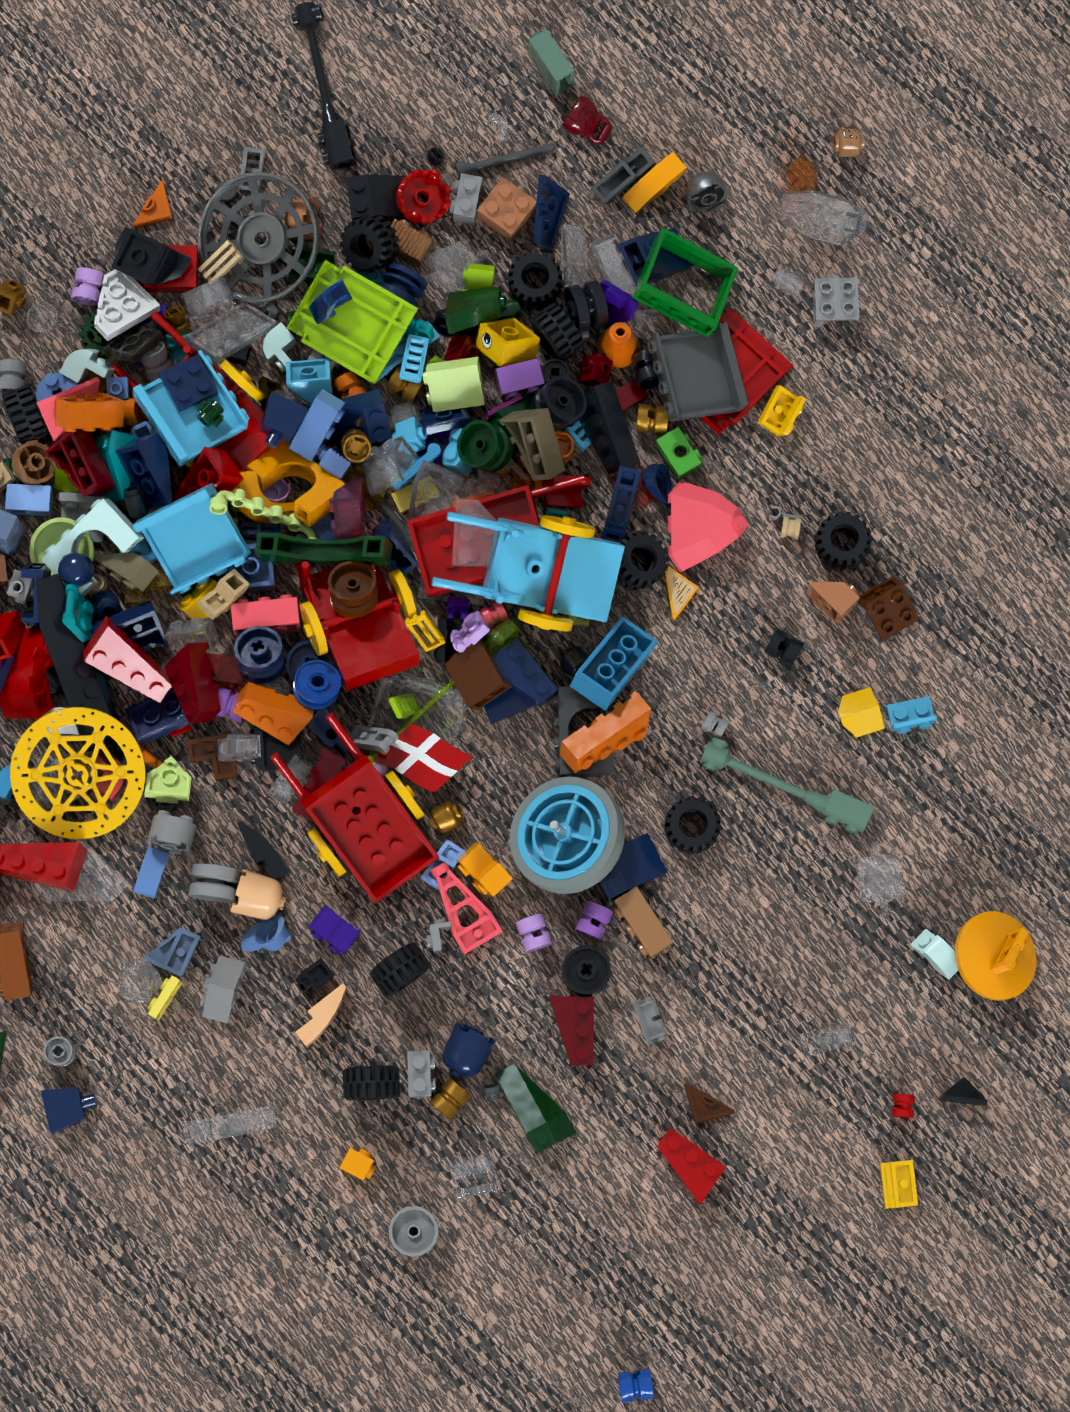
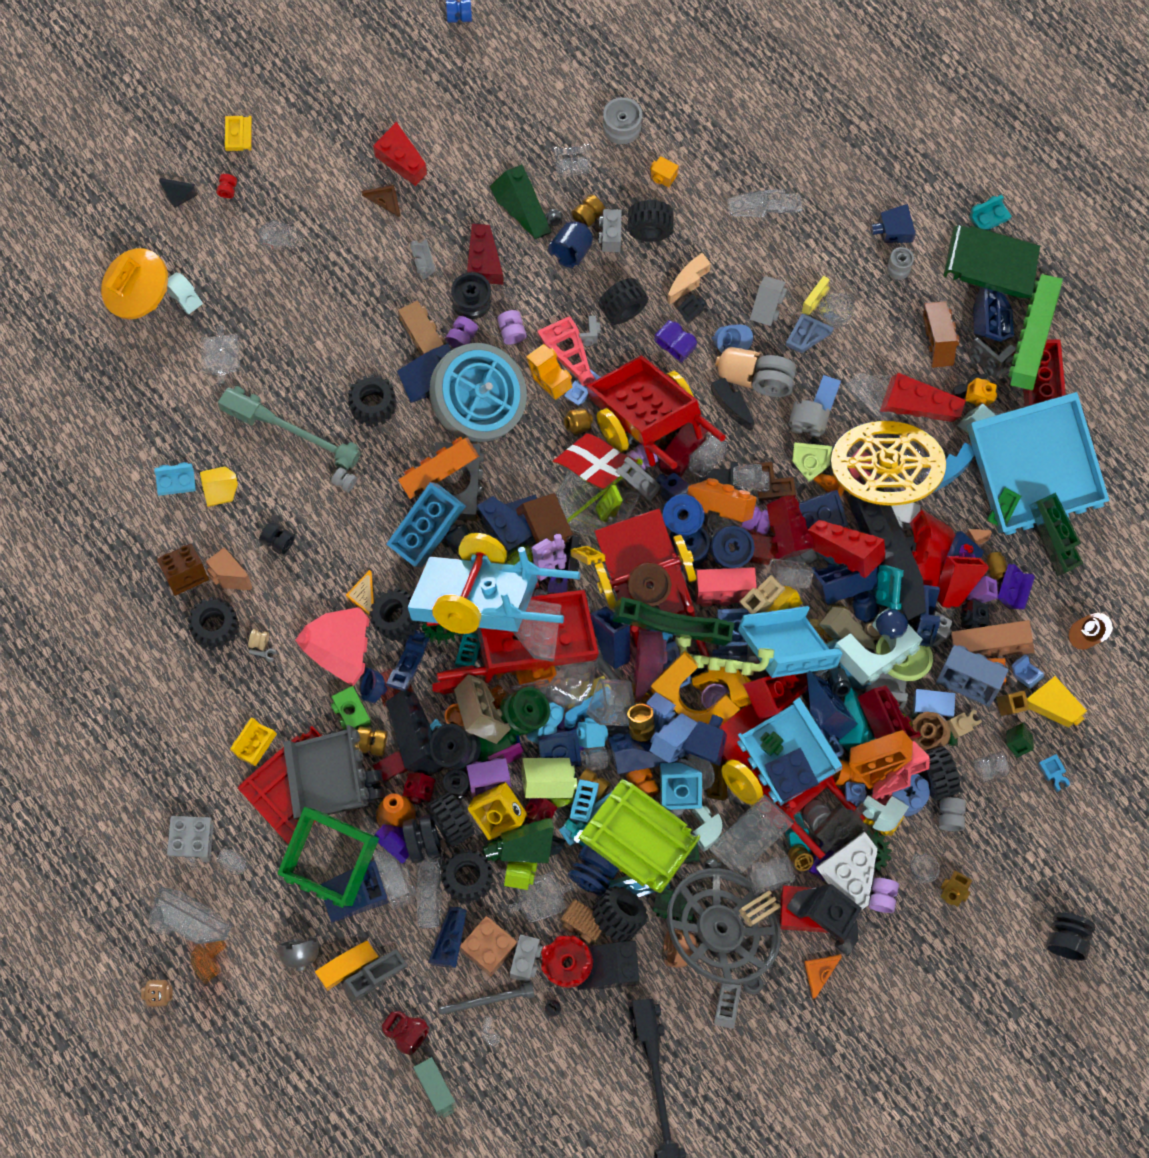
camera: 175 degrees left, 10 degrees down
(324, 305) = (659, 850): clear blue slope -> none

